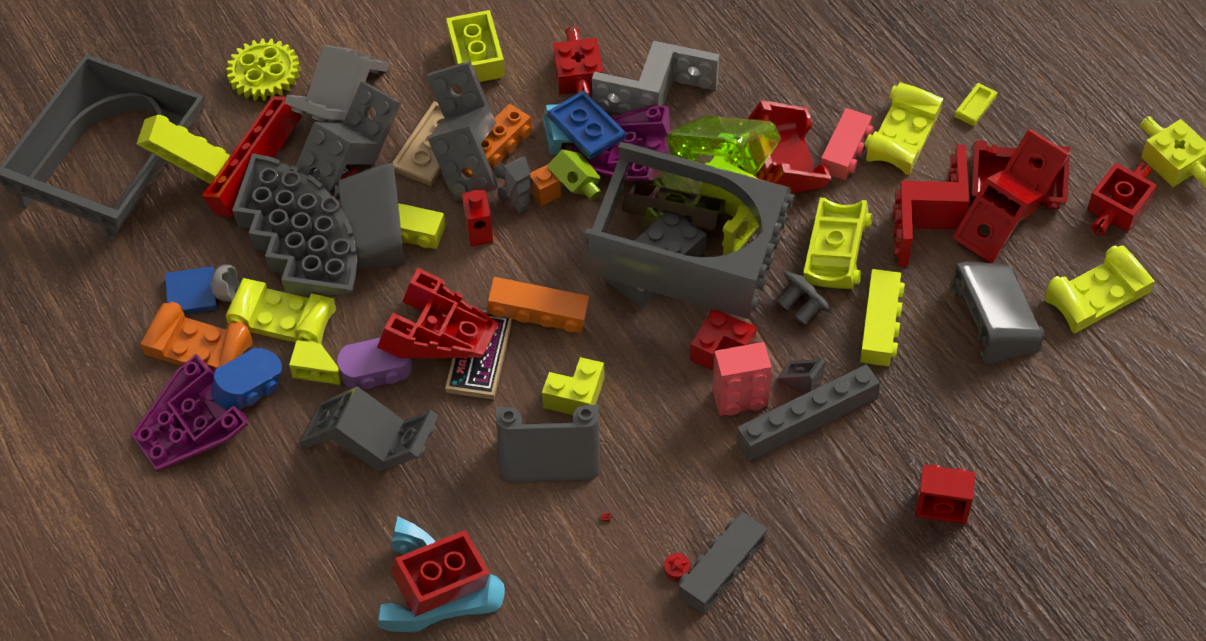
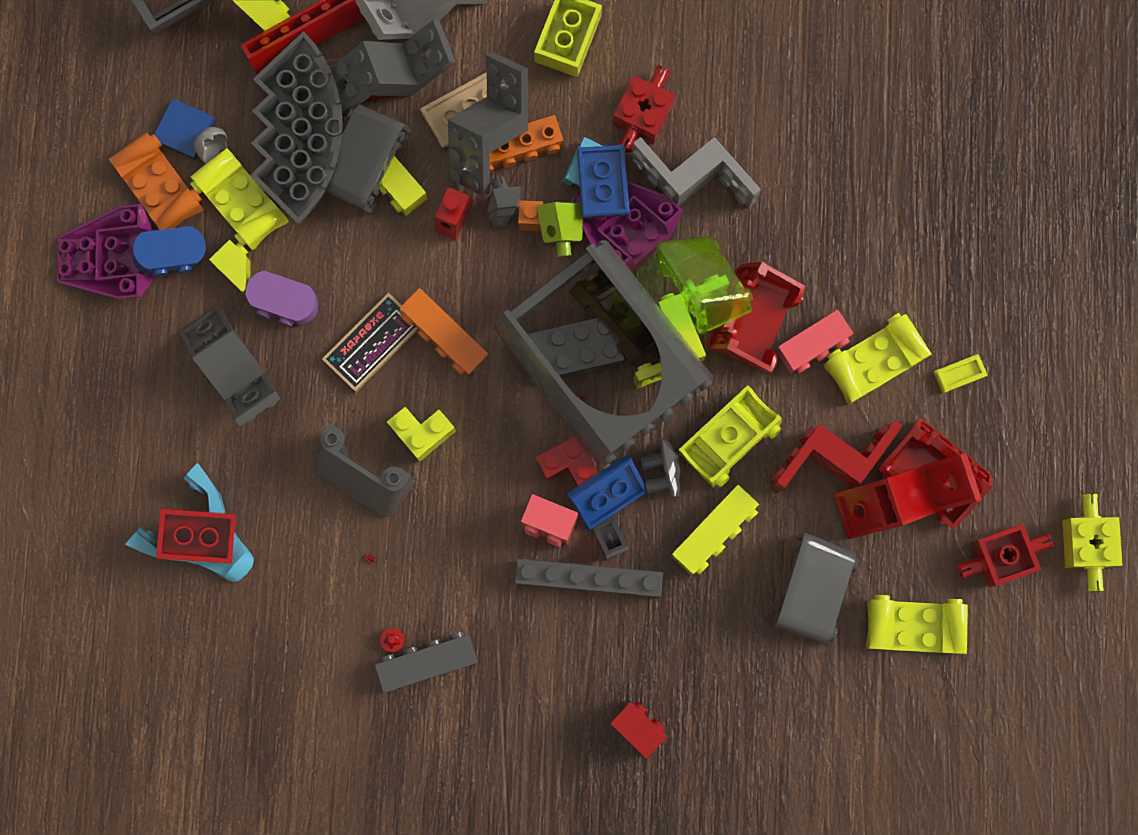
camera: 30 degrees right, 25 degrees up
(444, 328) = (353, 311): red wedge -> none
(777, 330) = (608, 492): none -> blue tile

